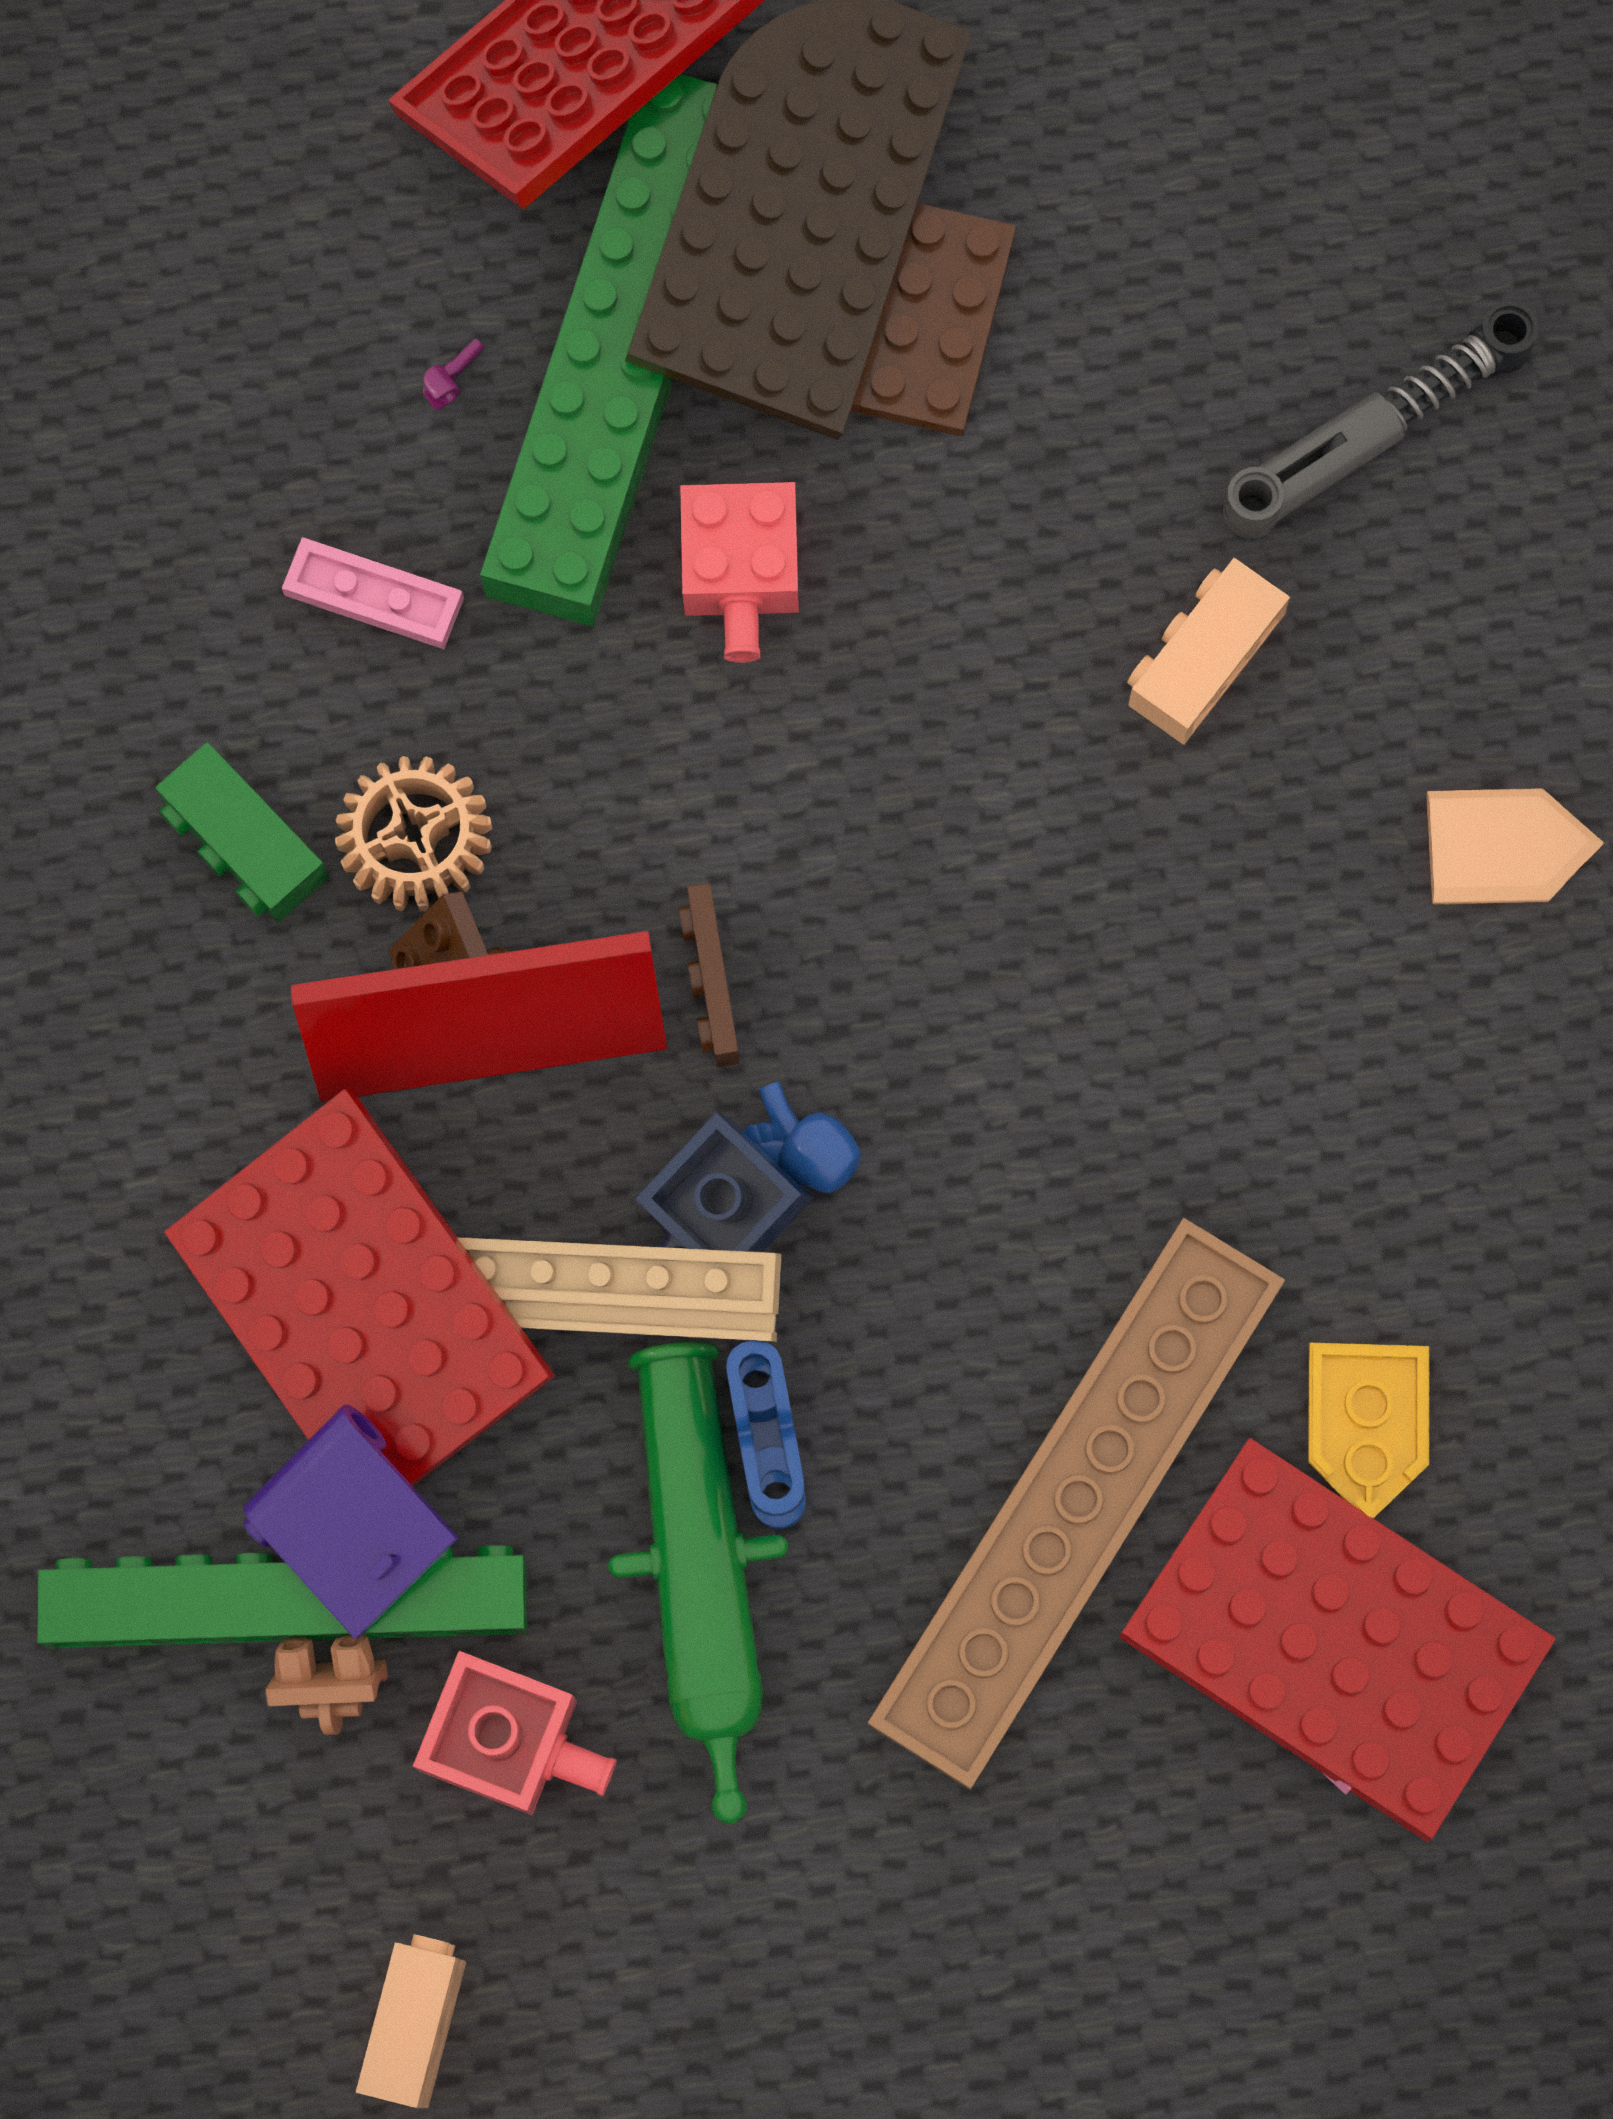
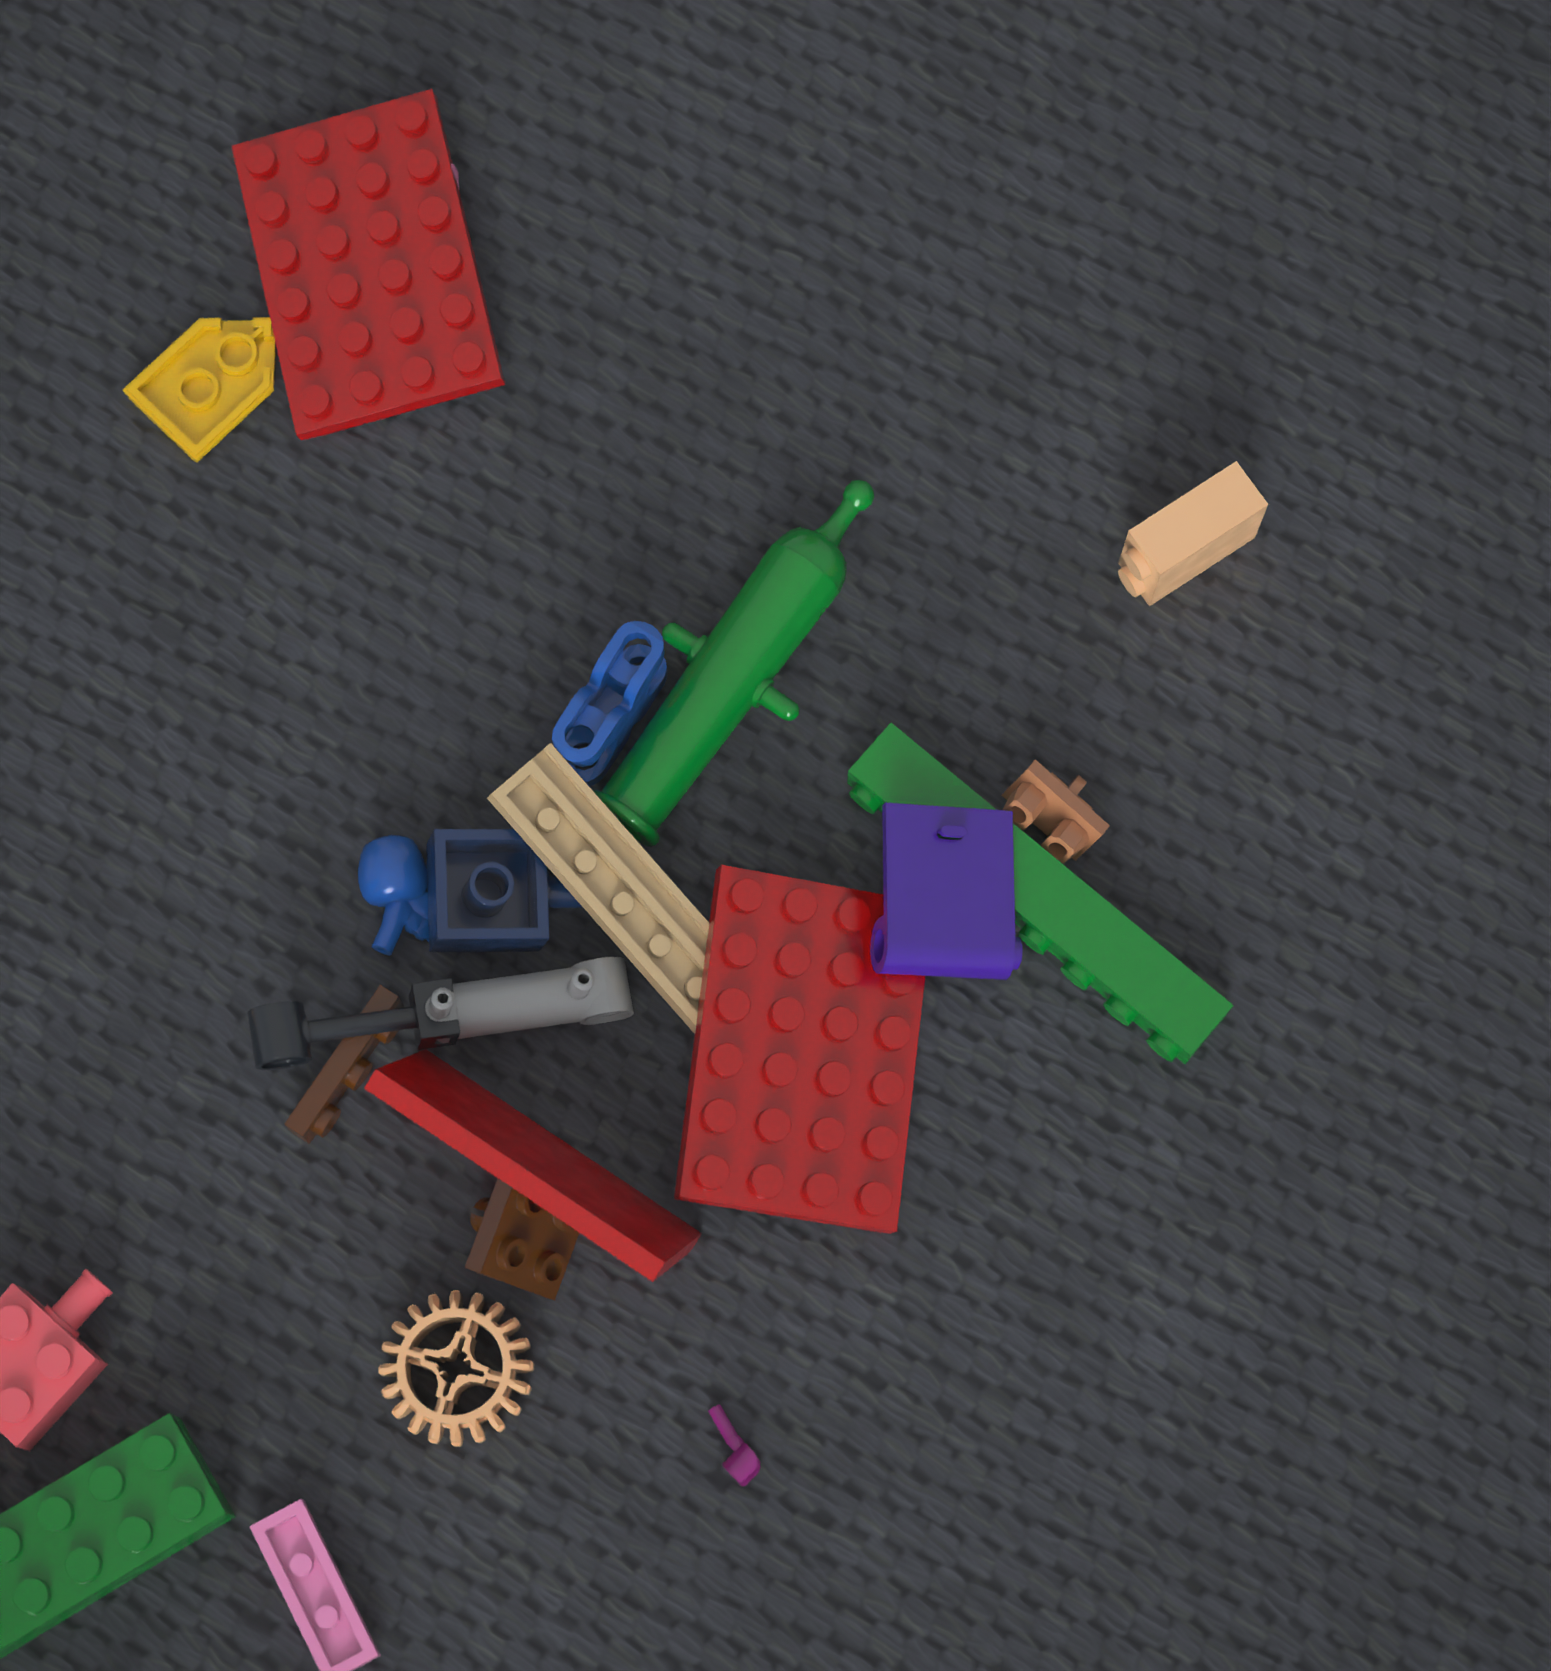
camera: 140 degrees left, 0 degrees up
(134, 963) = (743, 1462): none -> magenta hand
(240, 834) = (582, 1484): green brick -> none
(505, 1737) = (967, 667): coral brick -> none
(665, 1076) = (445, 1011): none -> piece
(1075, 1504) = (444, 494): medium nougat plate -> none

